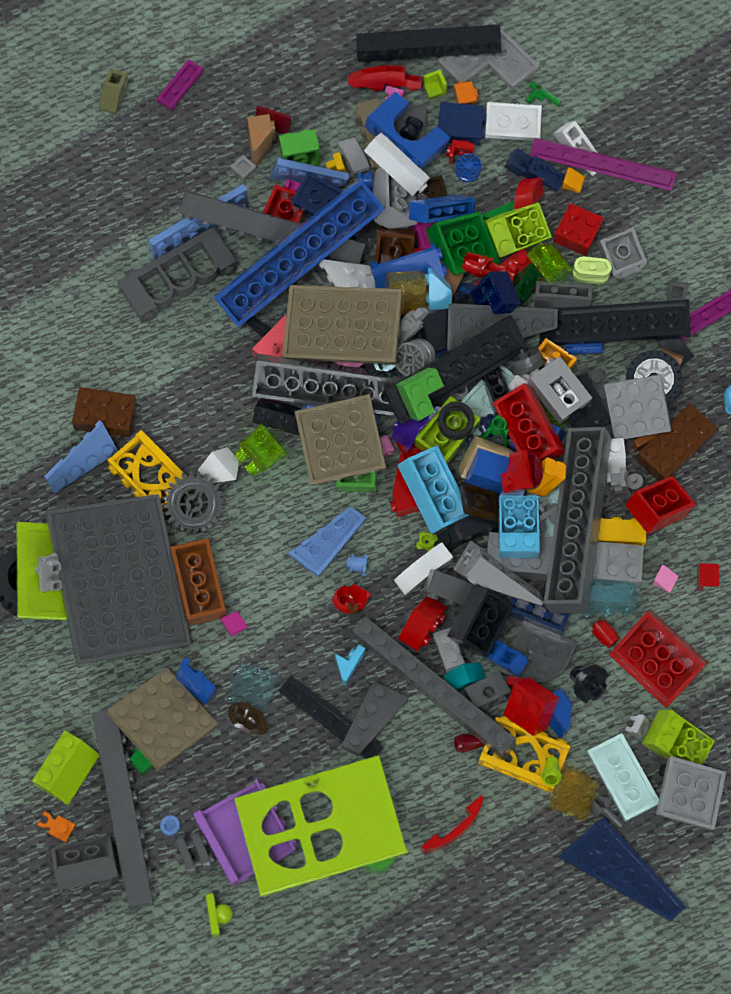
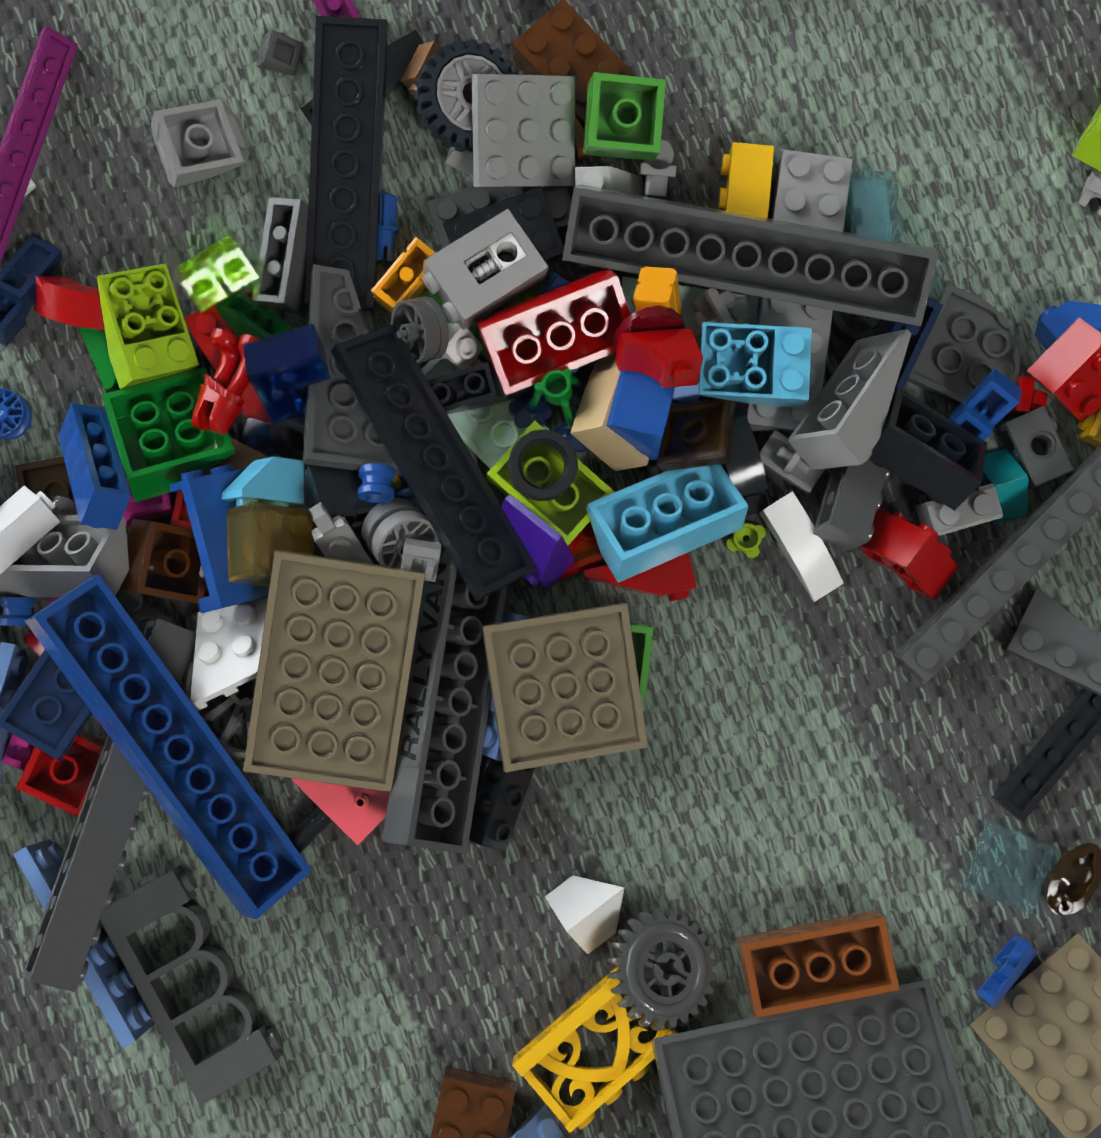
camera: 85 degrees left, 15 degrees up
(233, 623) = (890, 897): dark pink slope -> none
(261, 449) = (564, 841): clear neon green hips -> none
(324, 546) = (745, 722): medium blue wing -> none
(347, 668) = (983, 694): medium azure slope -> none
(350, 599) = (857, 682): red hair -> none
(357, 564) = (787, 666): medium blue brick -> none
(387, 446) = (559, 601): bright pink hinge -> none
(403, 364) = (421, 557): none -> light grey tile
(415, 392) = (481, 533): bright green brick -> none
(441, 341) = (376, 483): none -> blue wheel
(573, 180) = (44, 221): light orange slope -> none
(578, 229) = (147, 217): red brick -> none
(589, 683) = (1026, 268): black tile -> none
(591, 270) = (233, 198): yellowish green brick -> none
(604, 633) = (934, 231): red brick -> none
(648, 454) = (624, 116): none -> bright green brick
(658, 658) = (980, 144): red slope -> none
(660, 504) = (711, 112): red brick -> none
(665, 579) = (831, 124): bright pink slope -> none
(707, 575) = (835, 47): red panel -> none

